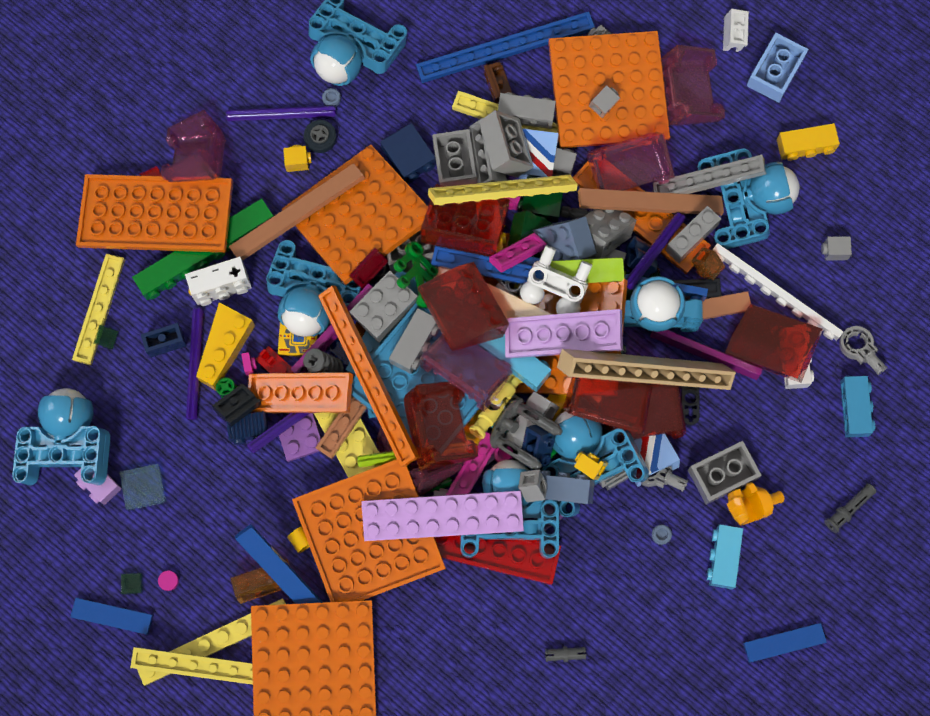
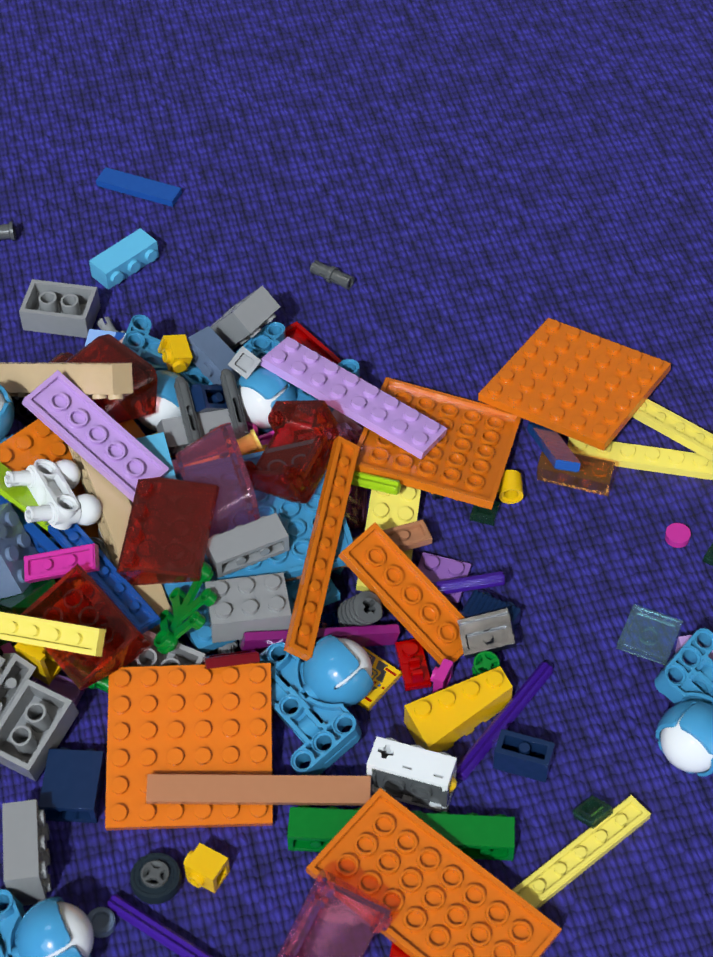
camera: 145 degrees left, 25 degrees down
(395, 94) = (26, 851): none -> light grey brick
(580, 541) = (246, 318): none -> light grey brick
(661, 534) = (162, 308): sand blue tile -> none
(752, 503) = (56, 270): light orange piece -> none

